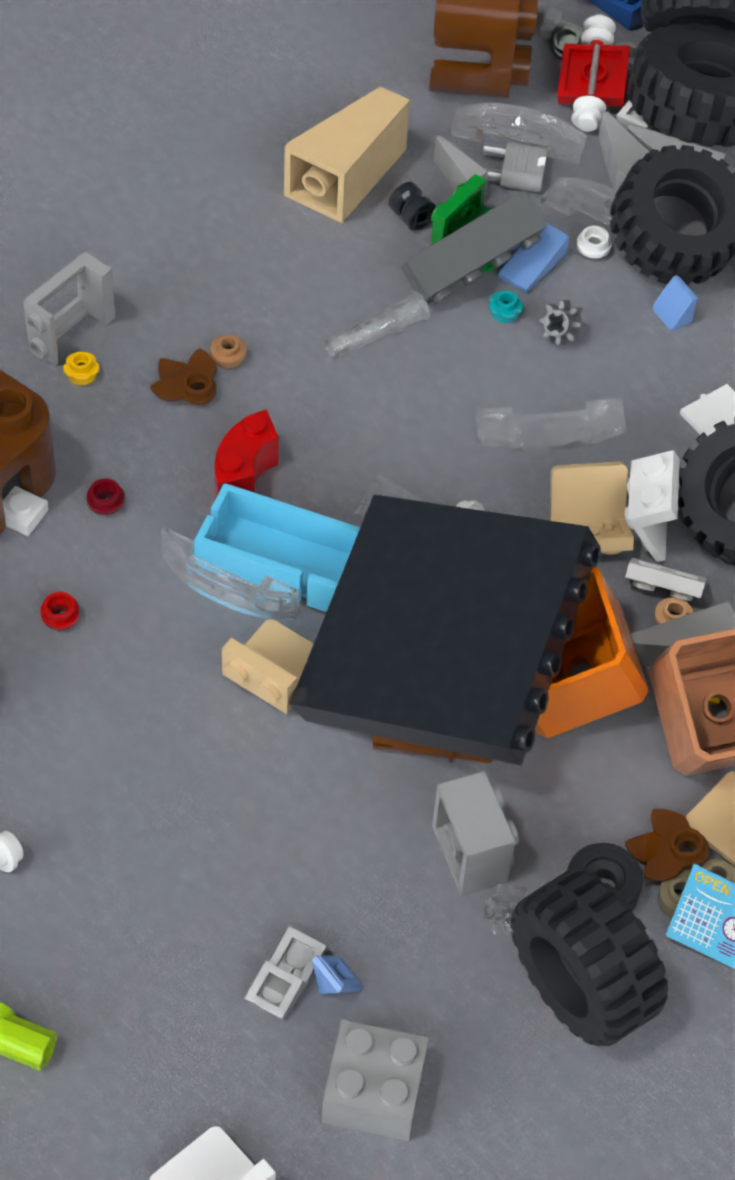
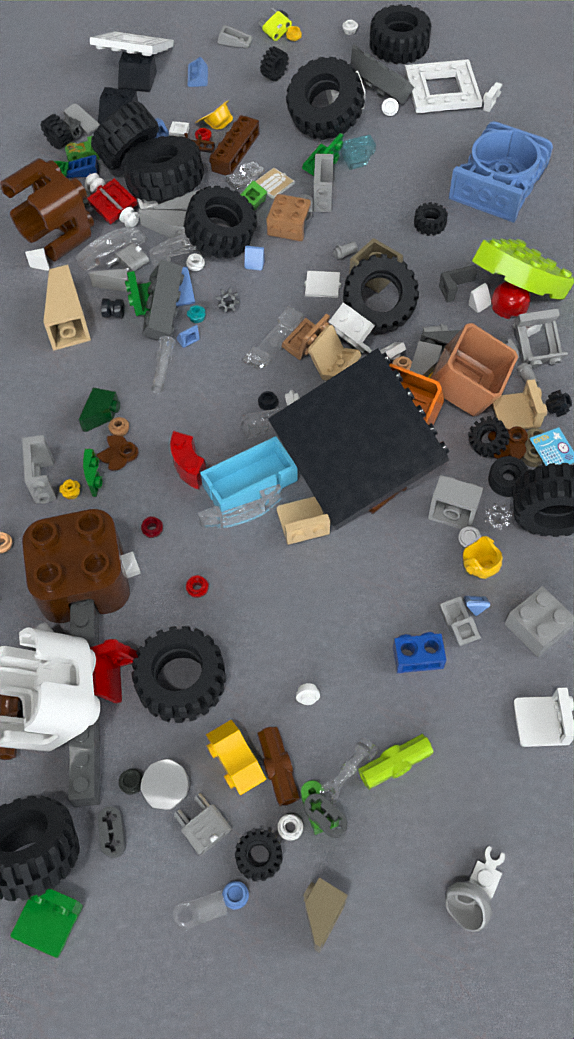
camera: 45 degrees left, 5 degrees up
(131, 361) = (91, 473): none -> green slope
(175, 954) = (420, 659): none -> blue brick
(230, 307) = (99, 409): none -> dark green slope
(409, 70) = (38, 259): none -> white slope
(412, 932) = (482, 558): none -> yellow cap
(439, 489) = (267, 400): none -> black plate
(443, 896) = (468, 536): none -> plate
(455, 323) = (188, 336): none -> medium blue slope
(592, 449) = (303, 336): none -> medium nougat bracket
(649, 823) = (484, 427): none -> black tyre

